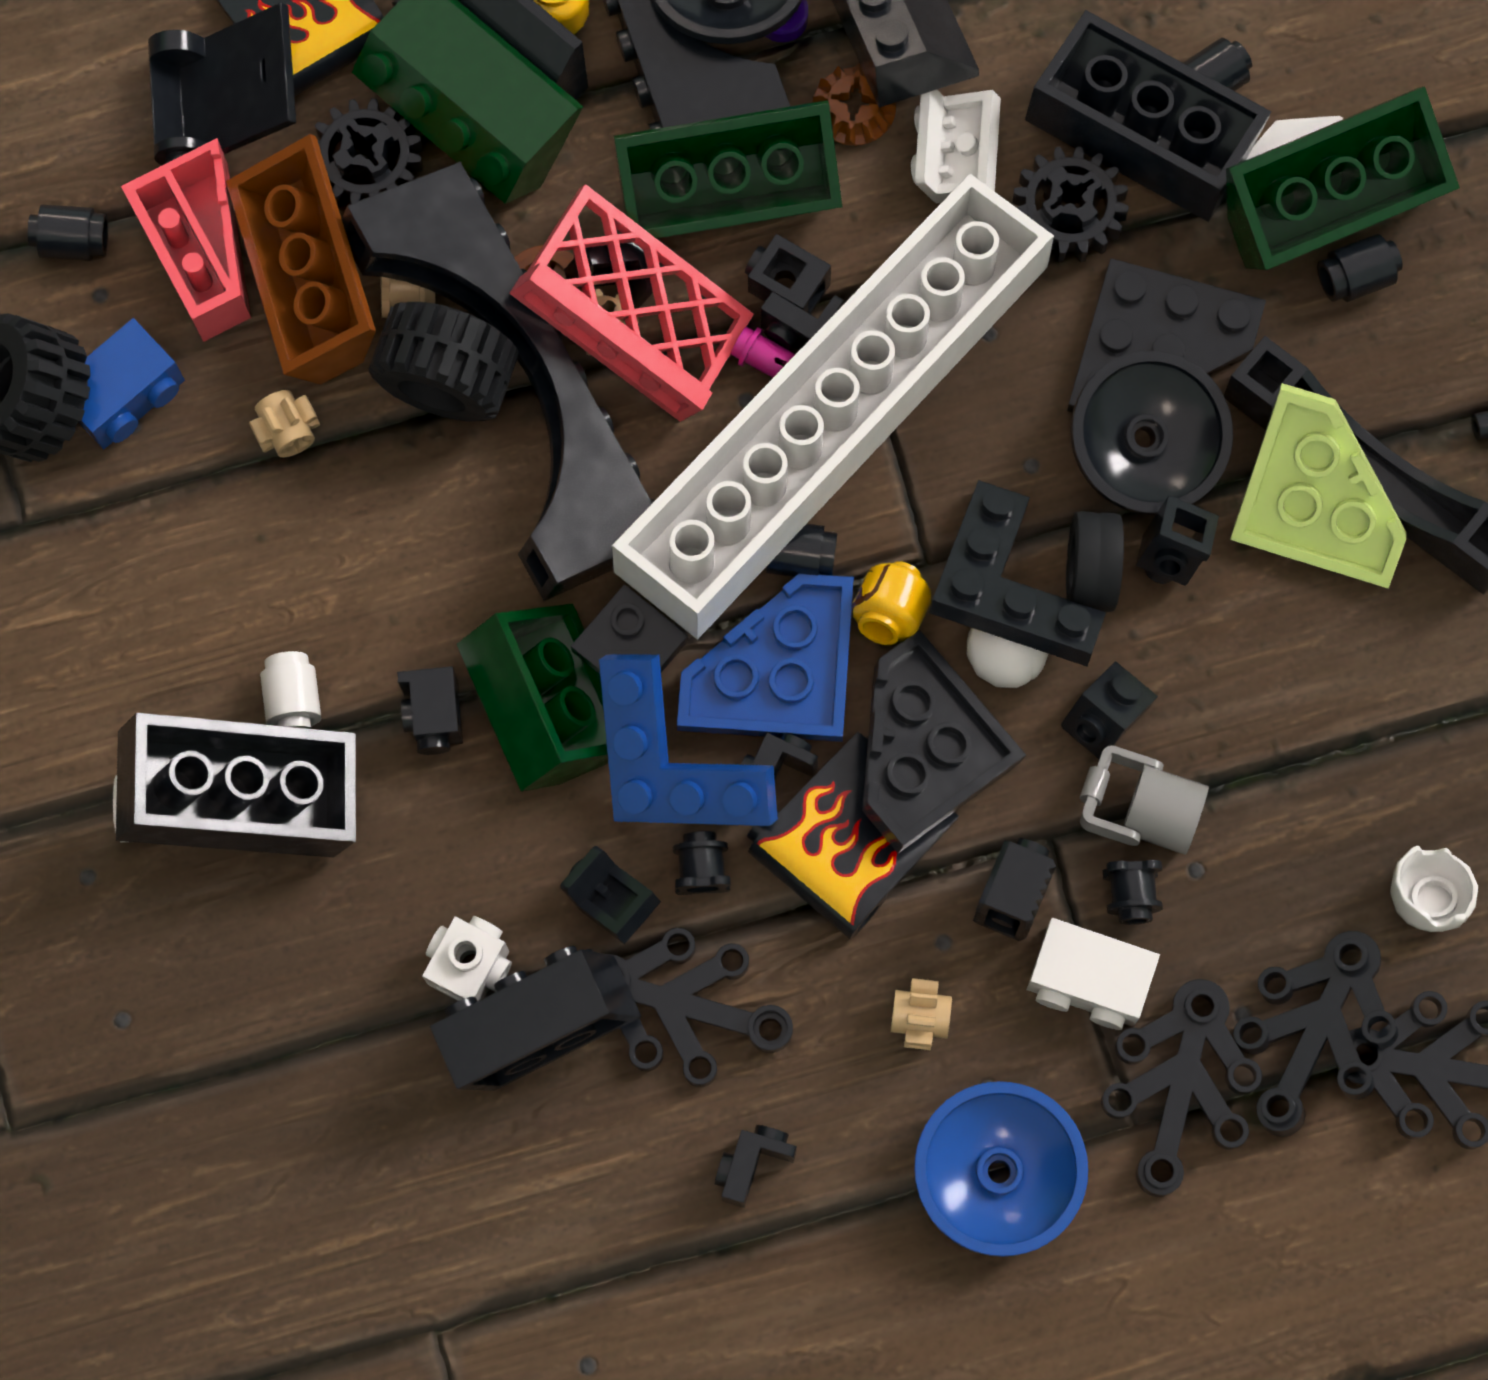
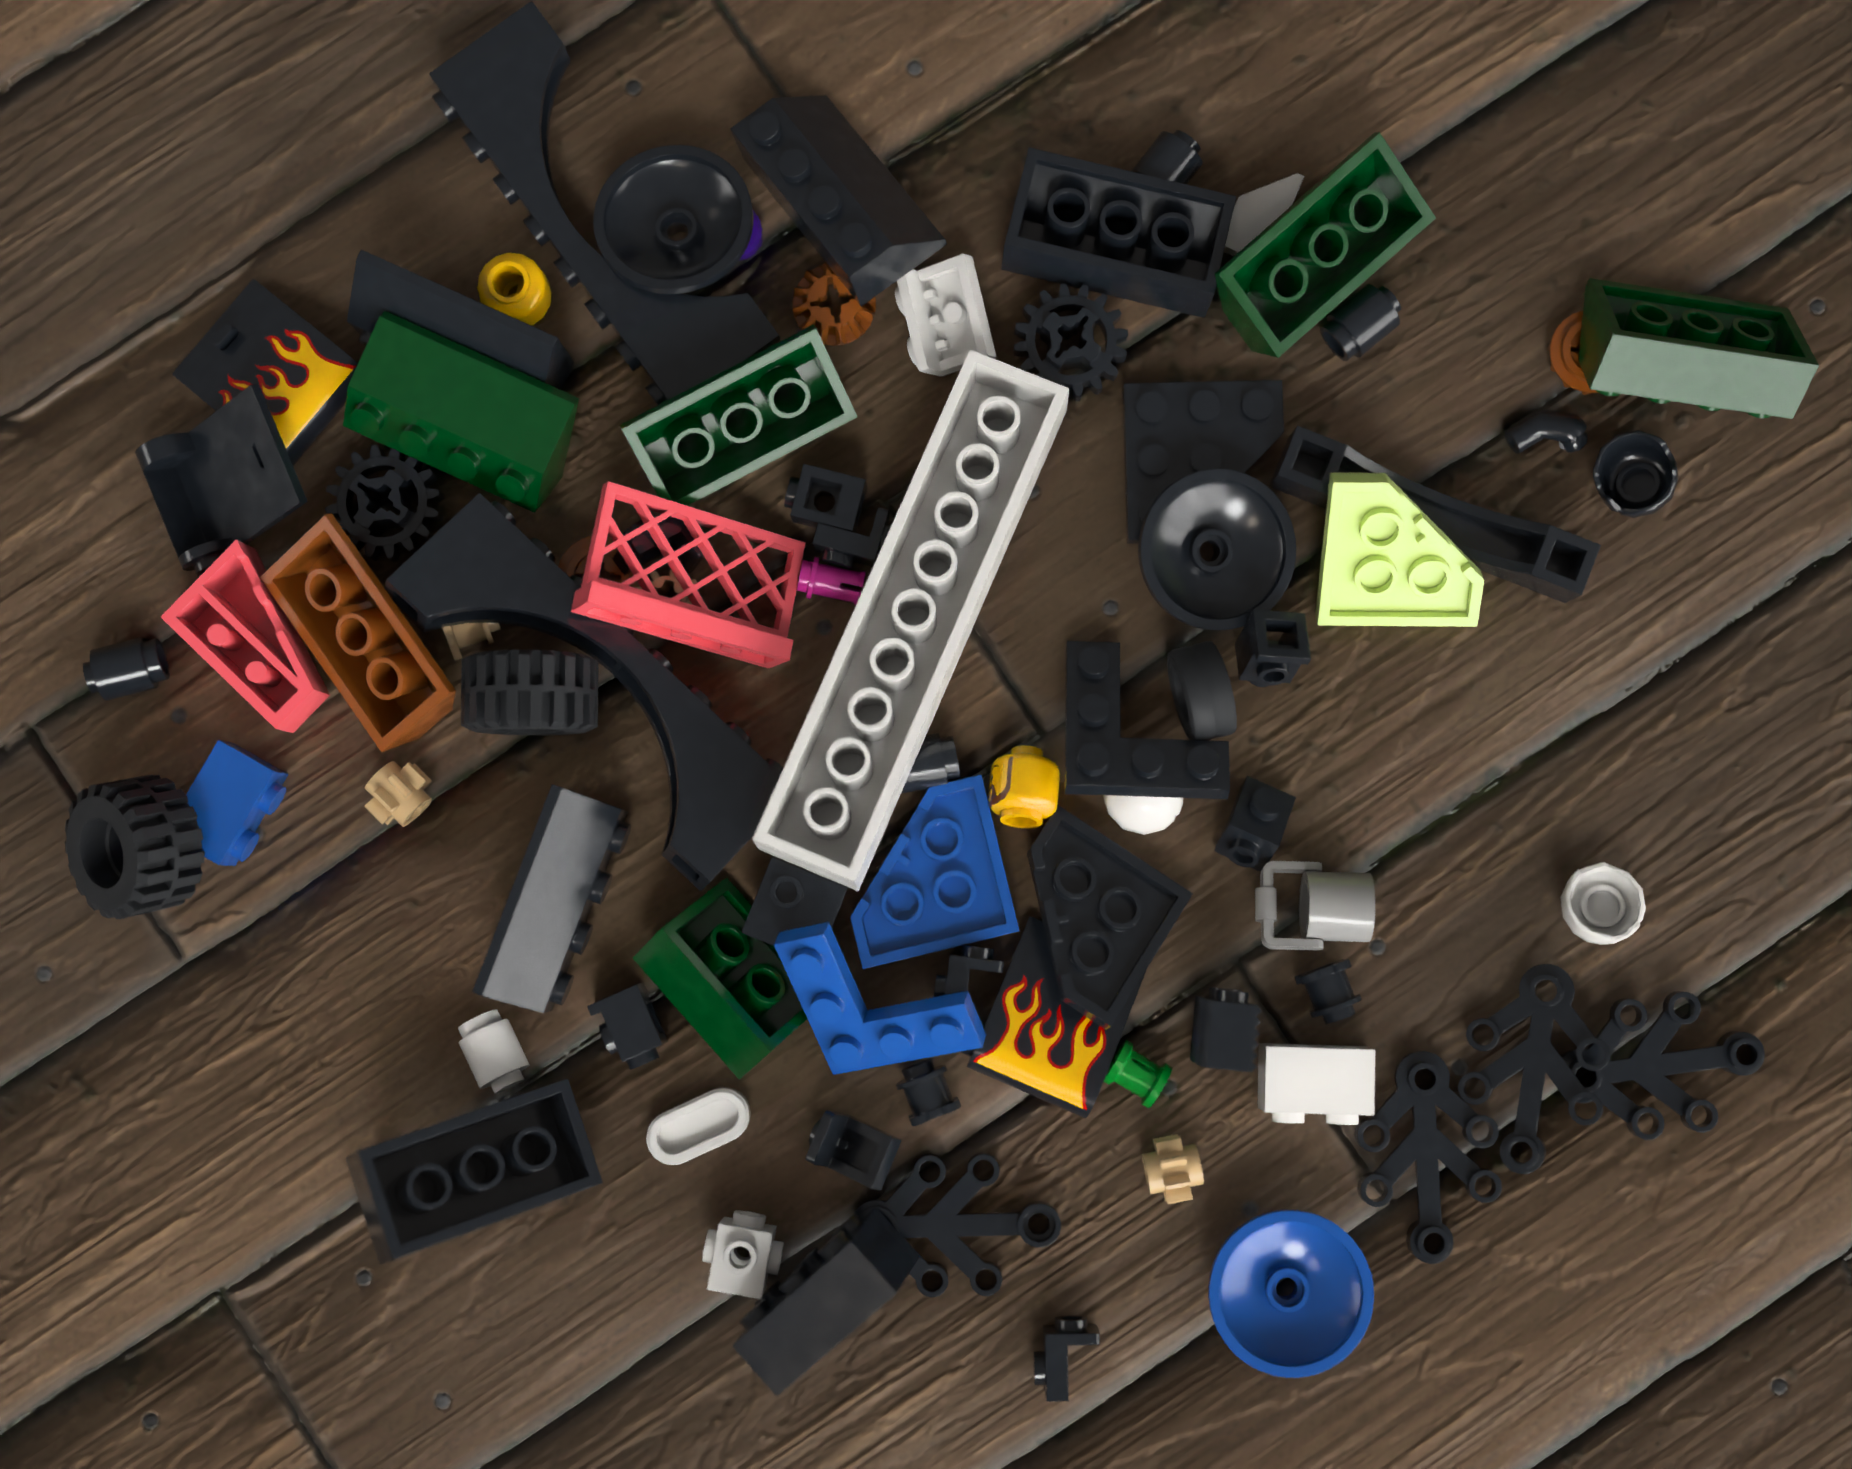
camera: 15 degrees left, 10 degrees up
(398, 563) = (552, 901): none -> slope
(465, 831) = (698, 1126): none -> white tile
(915, 912) = (1137, 1074): none -> green bush

